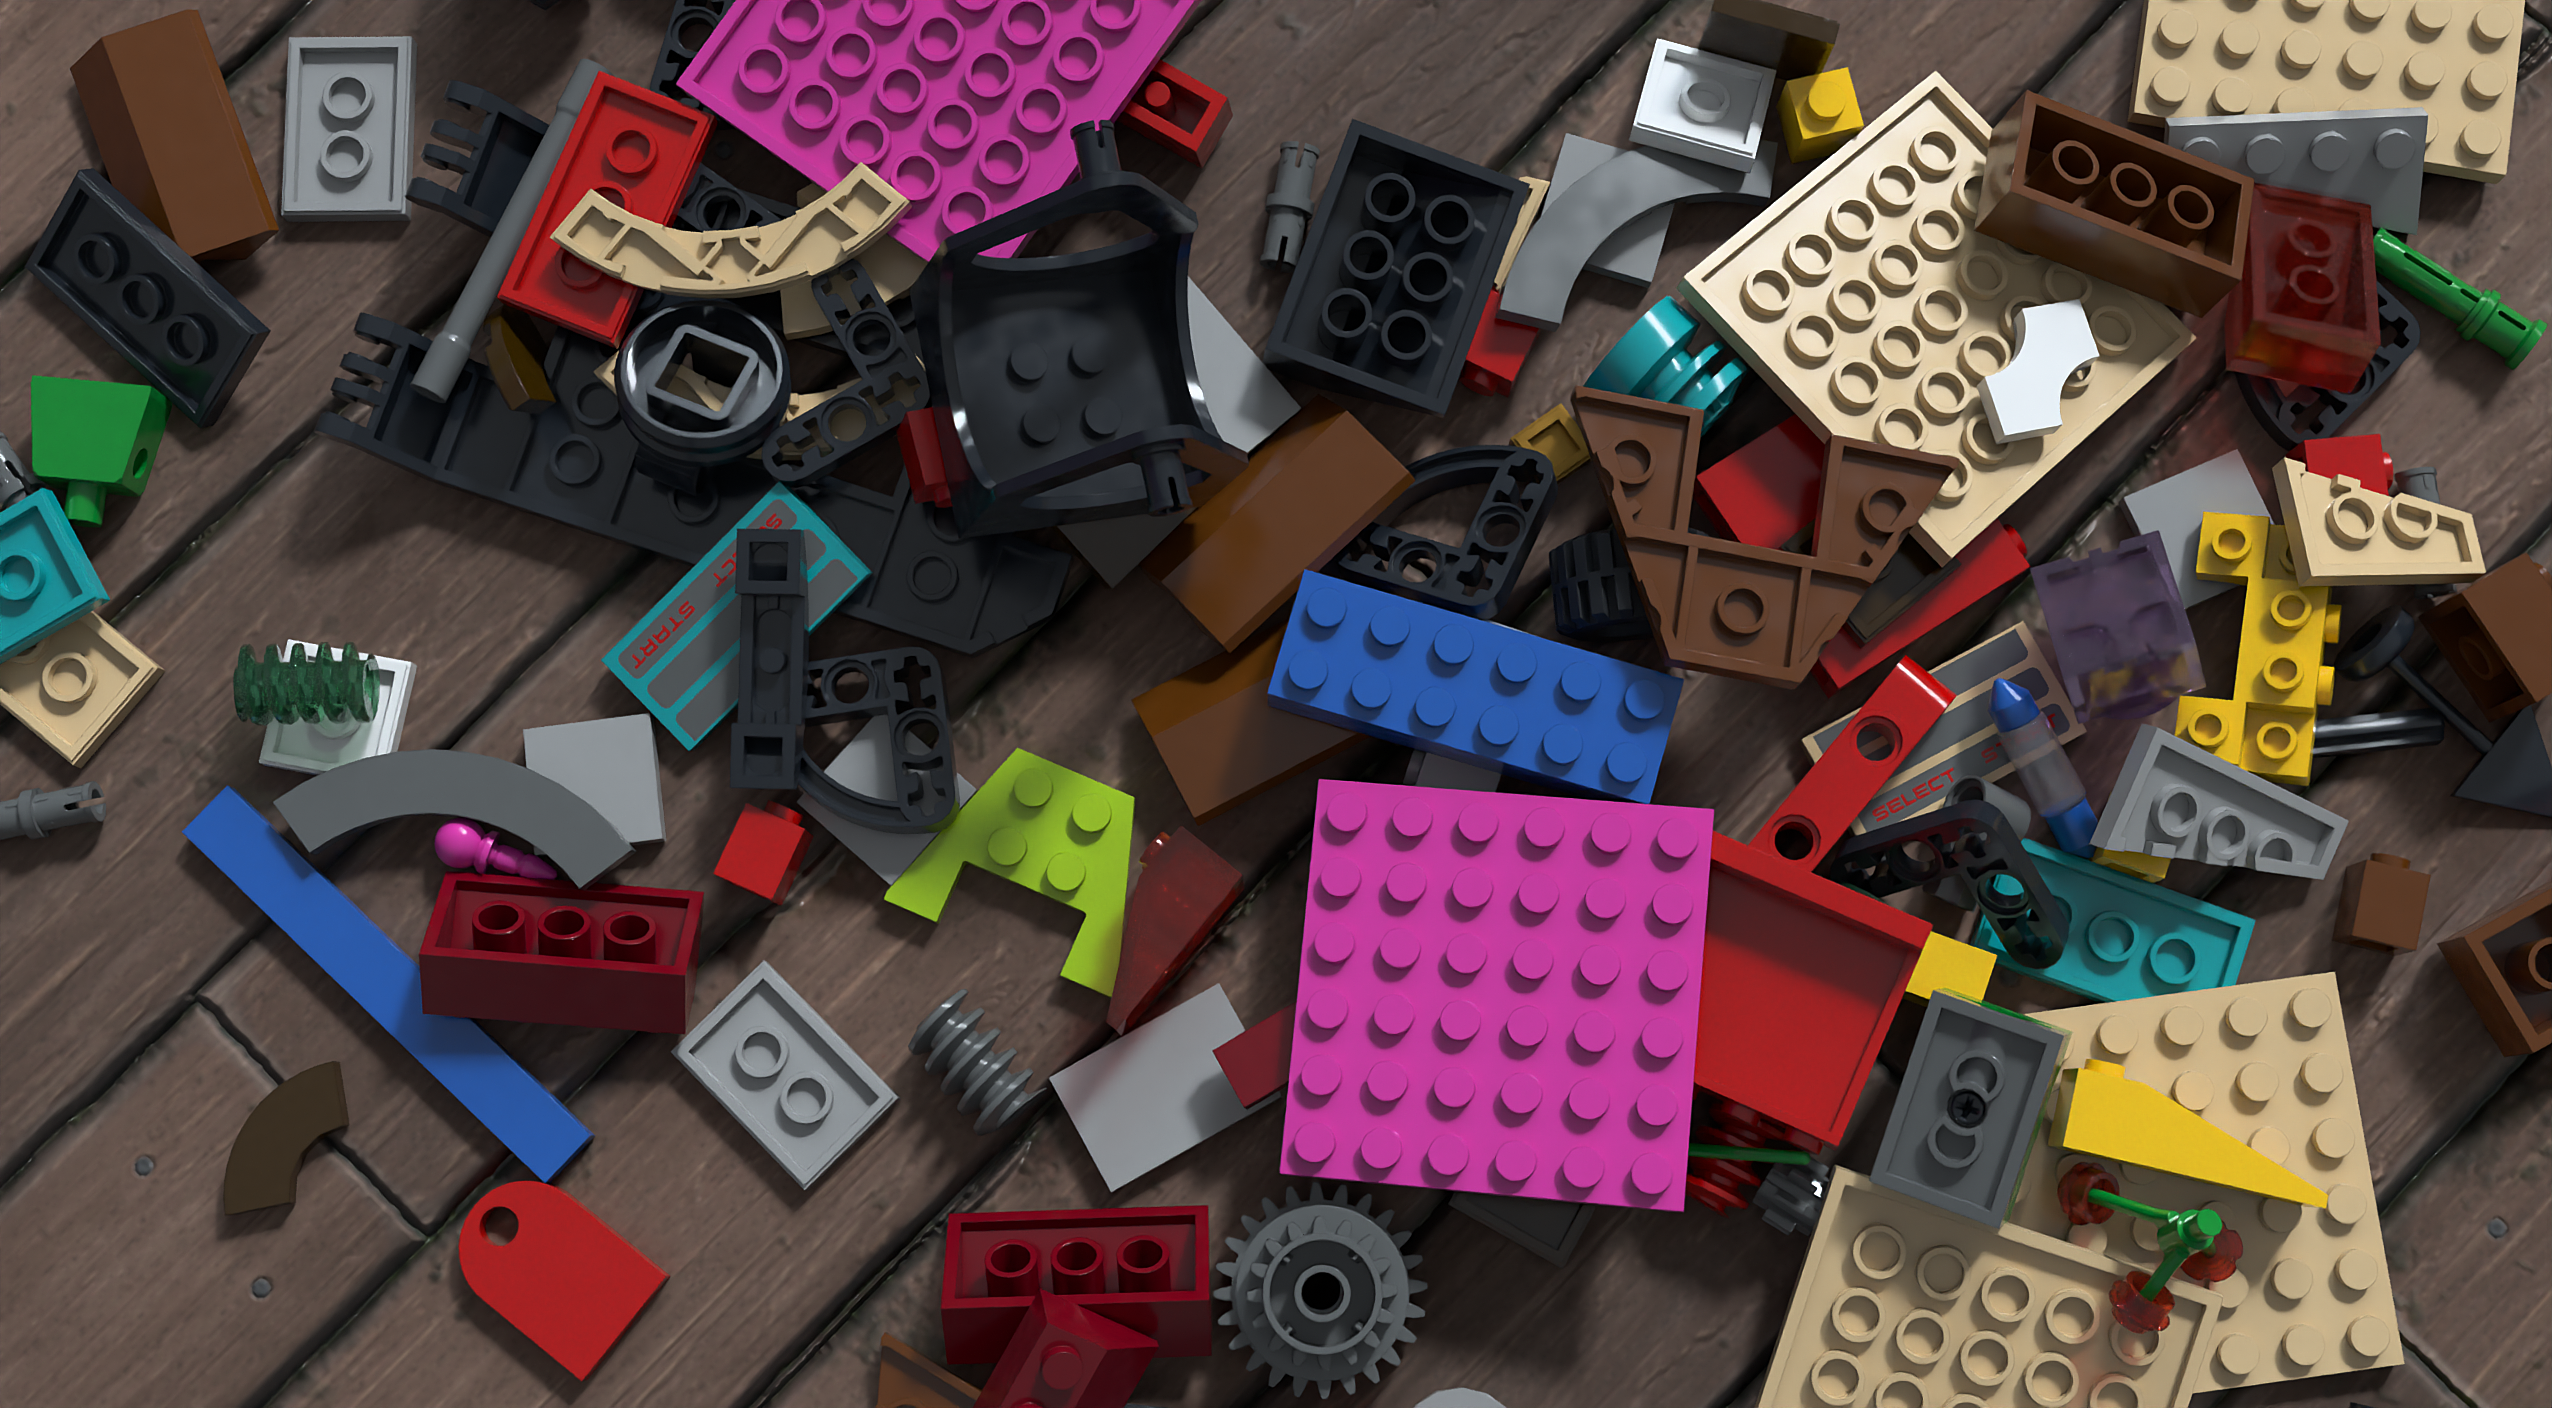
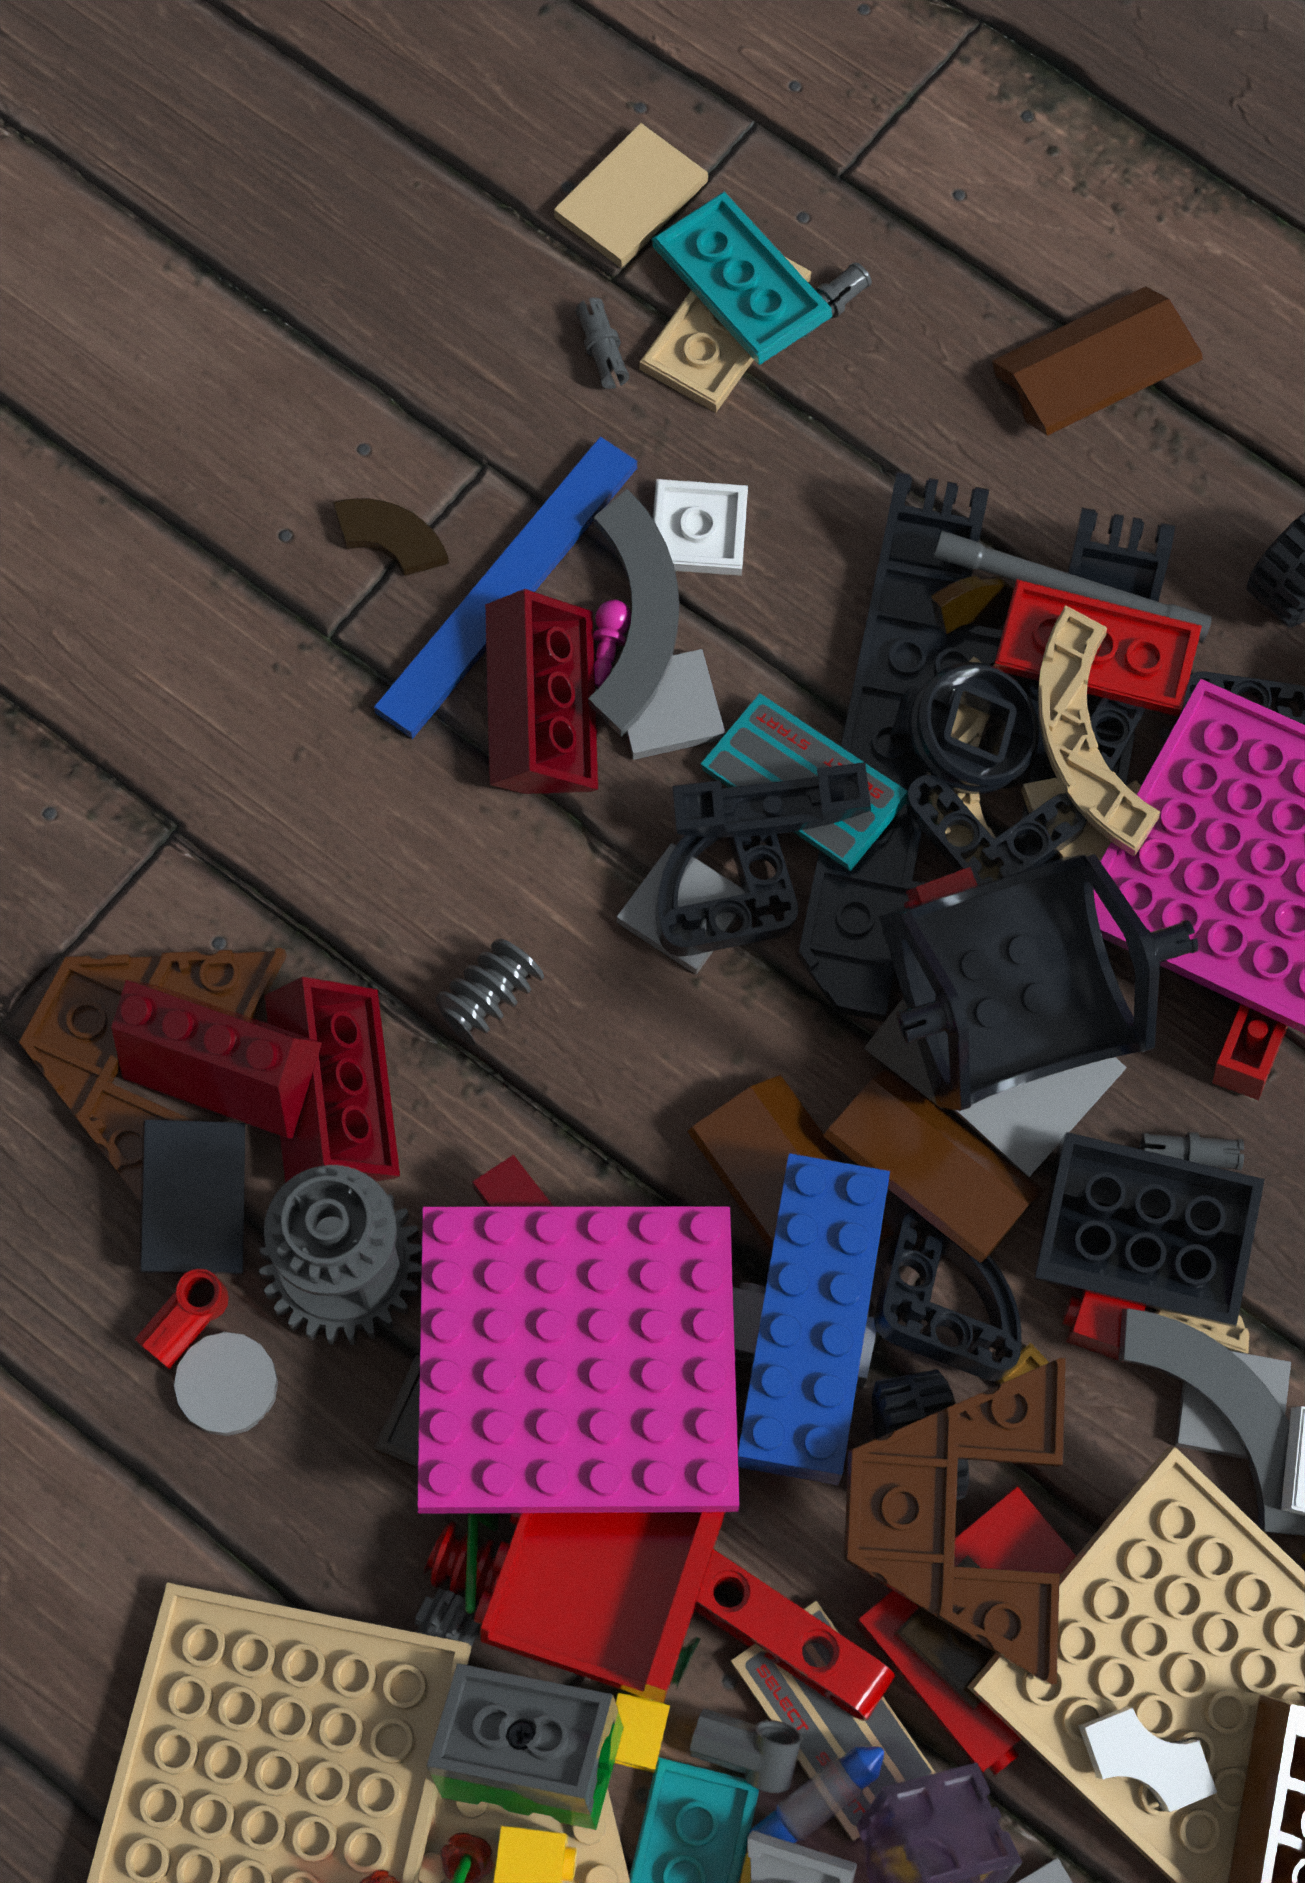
camera: 80 degrees right, 10 degrees down
(95, 440) = (873, 340): green torso -> none
(147, 298) = (982, 357): black tile -> none
(306, 686) = (713, 497): clear green piece -> none
(349, 129) = (1135, 473): light grey tile -> none
(562, 1276) = (309, 728): red tile -> none
(765, 851) = (630, 824): red brick -> none
(785, 1075) = (468, 862): light grey tile -> none
(1046, 835) = (667, 1029): lime wing -> none
(1156, 1089) = (480, 1121): light grey tile -> none
(1173, 910) = (609, 1111): clear red slope -> none
(1657, 366) = (1096, 1447): teal wheel -> none
(1975, 862) = (684, 1791): black beam -> none

